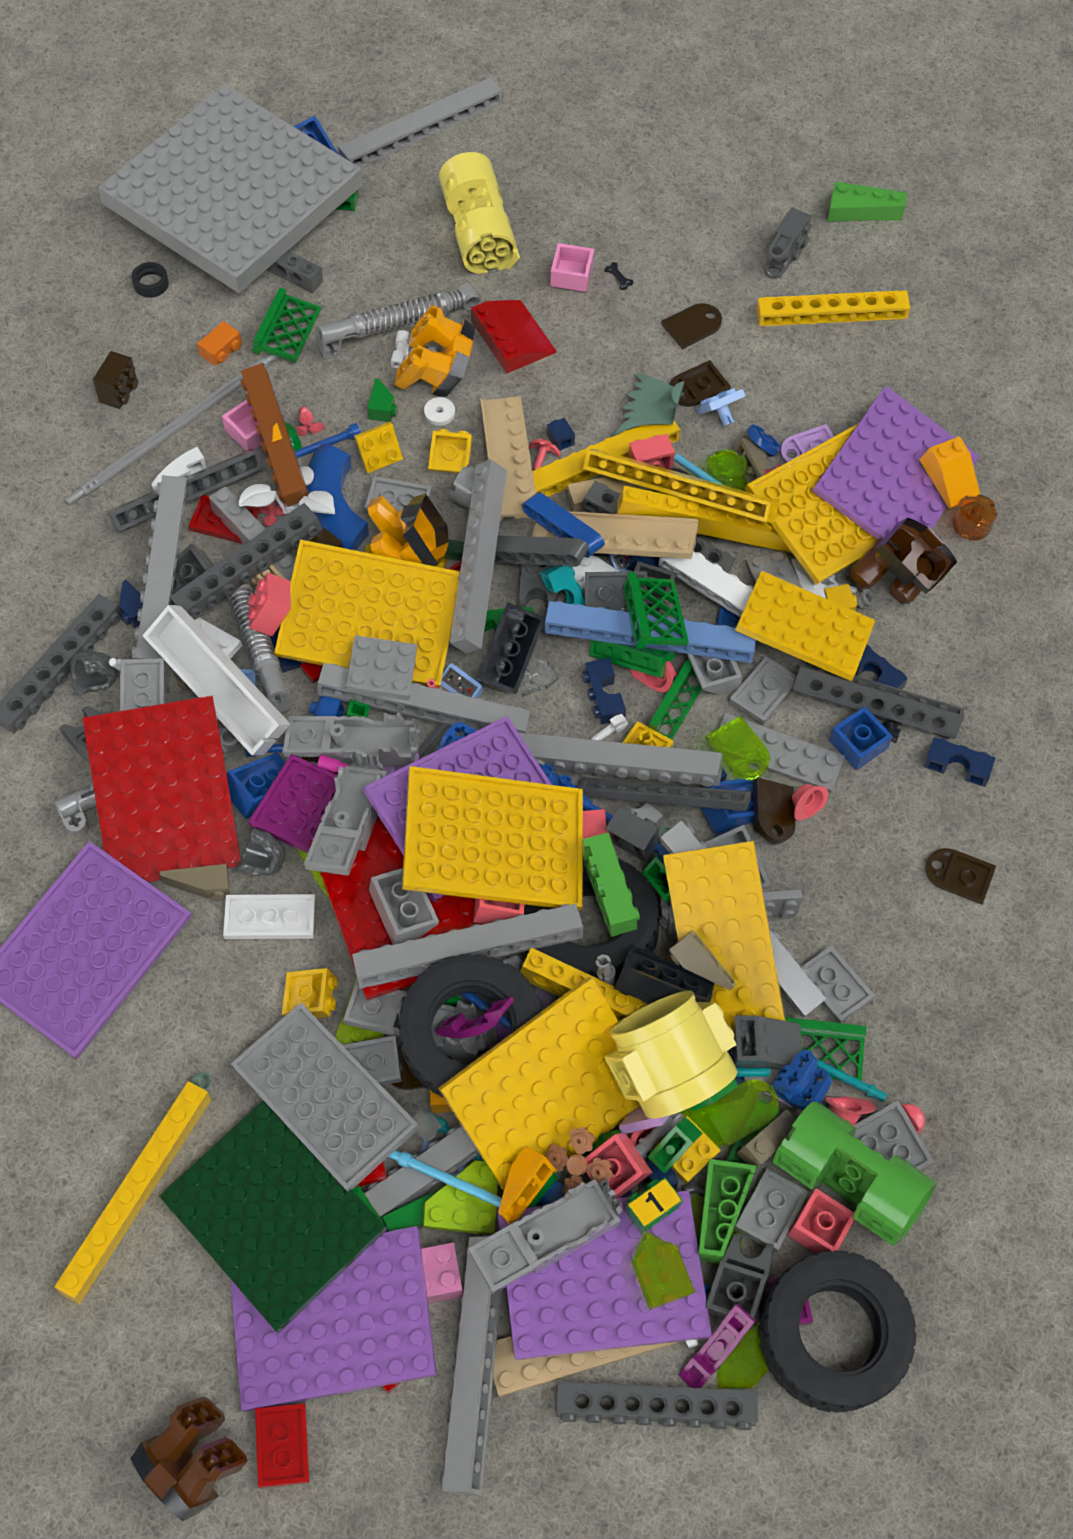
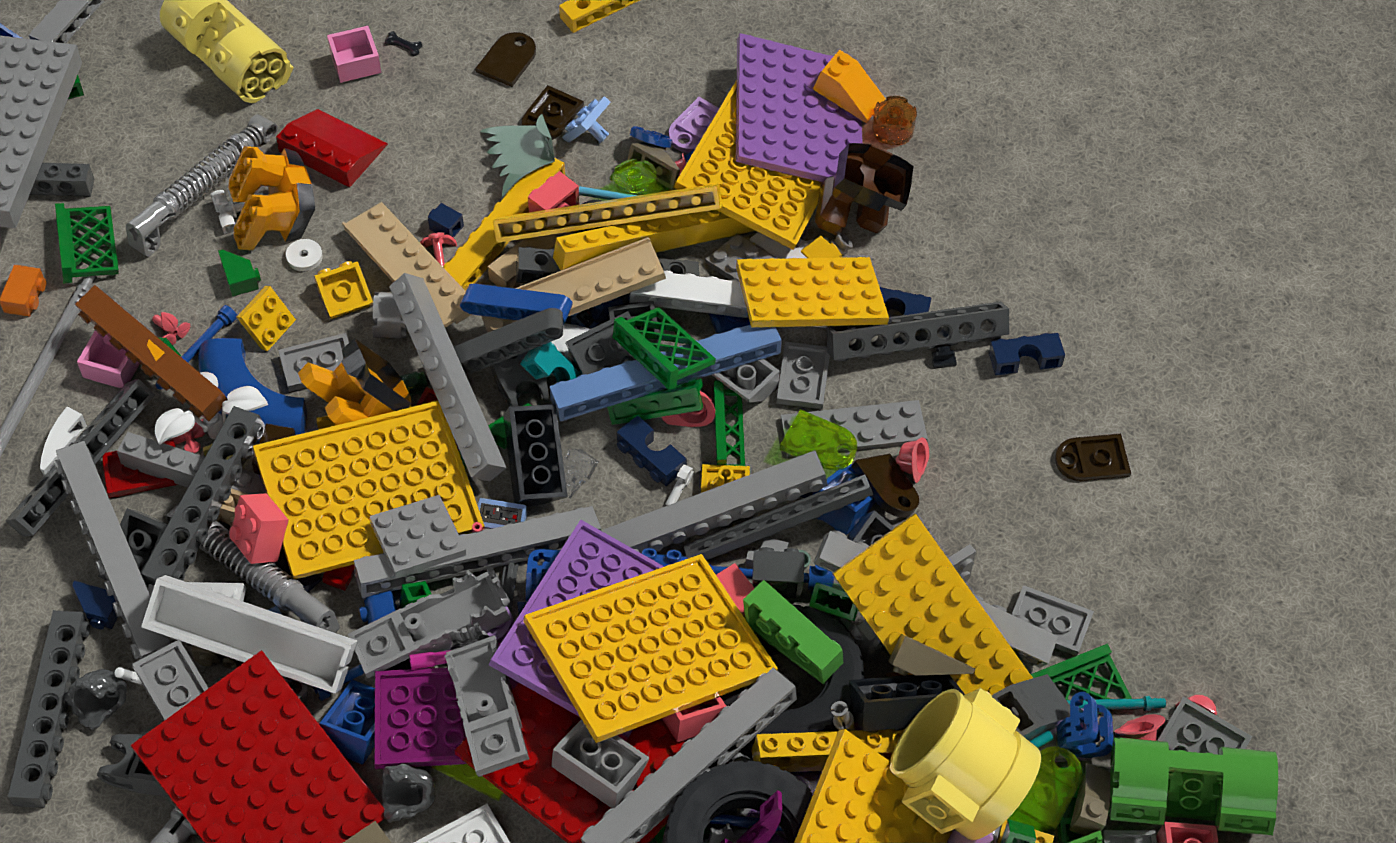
camera: 30 degrees left, 5 degrees down
(860, 738) = (924, 375): blue brick -> none

